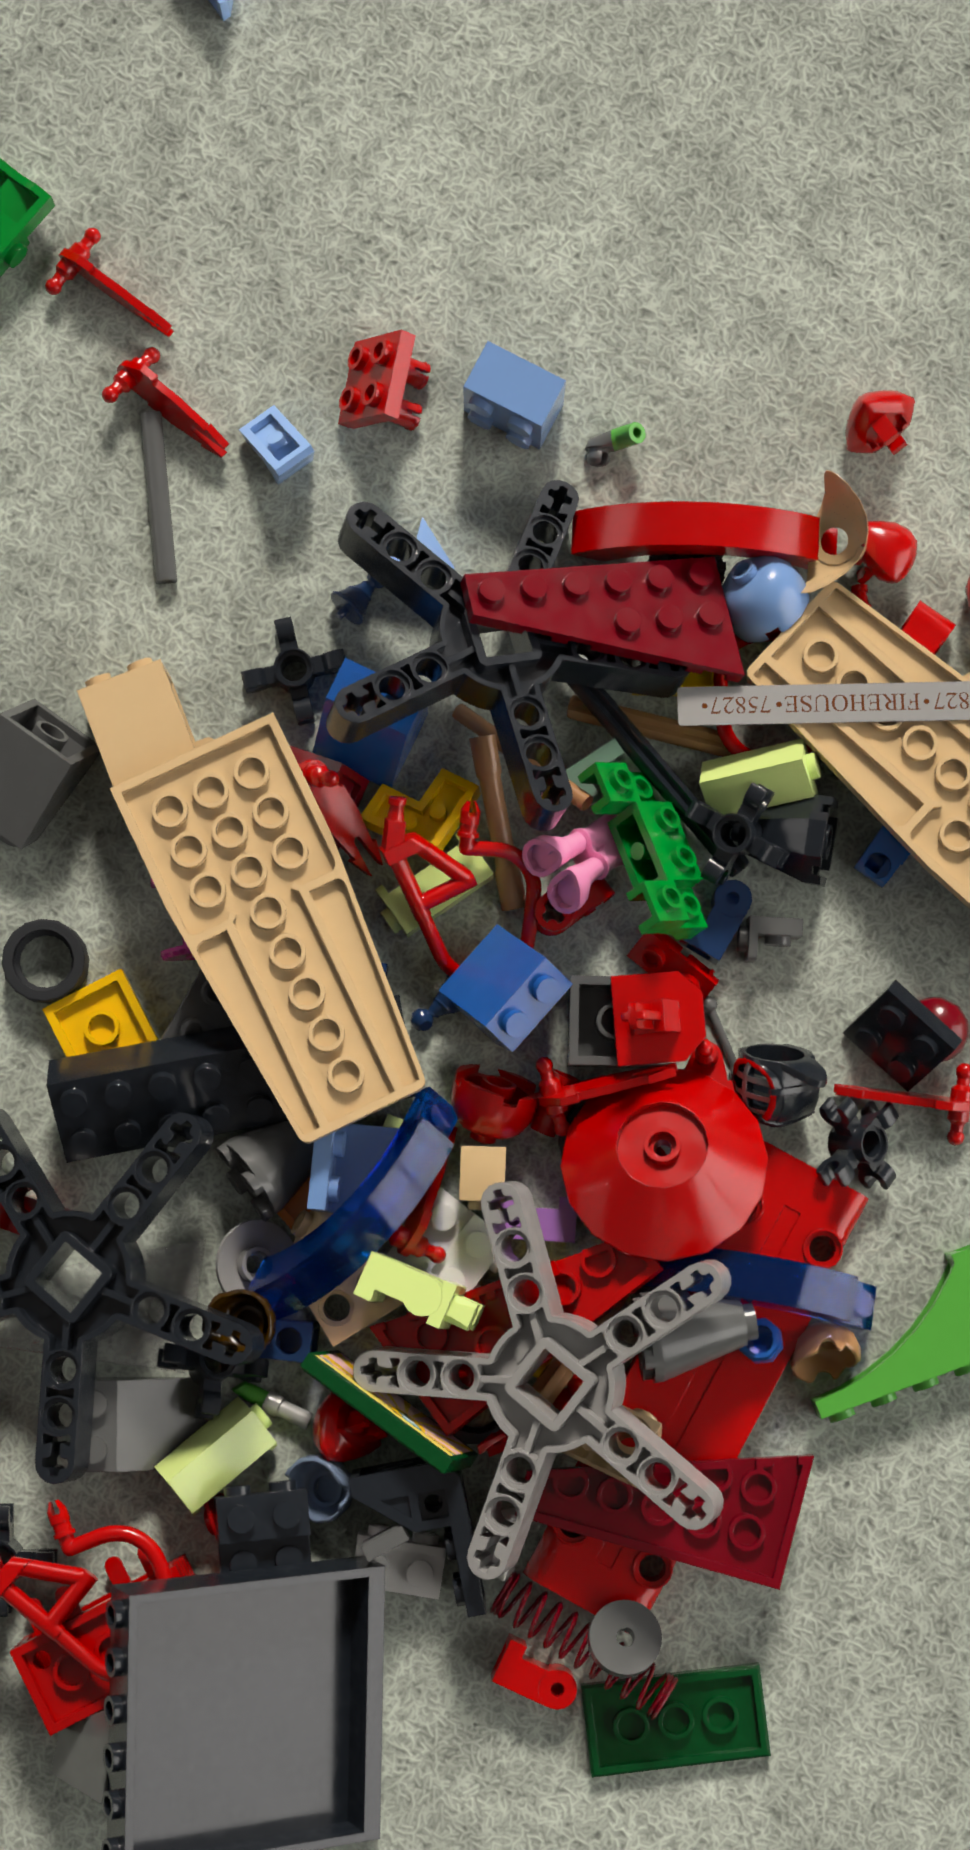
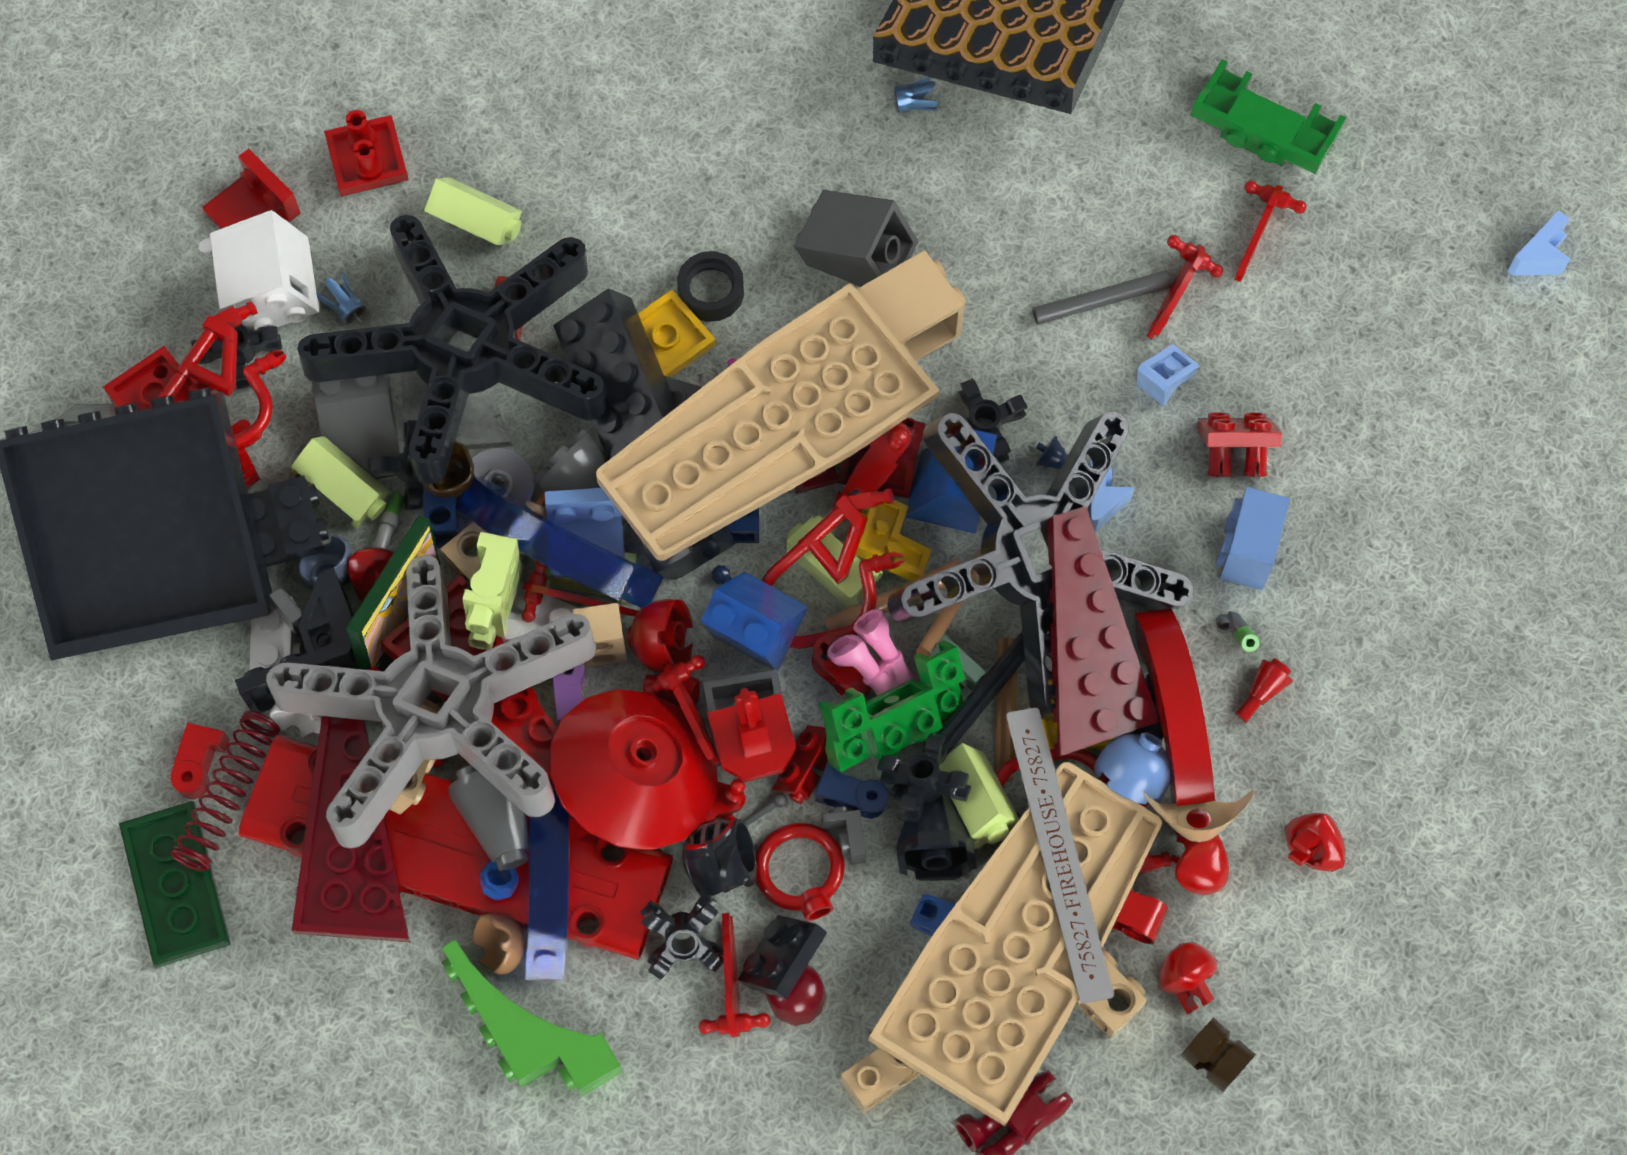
camera: 80 degrees right, 15 degrees down
(619, 1659) = (229, 830): dark grey piece -> none
(680, 426) = (1268, 682): none -> red cone
(837, 985) = (815, 901): none -> red piece

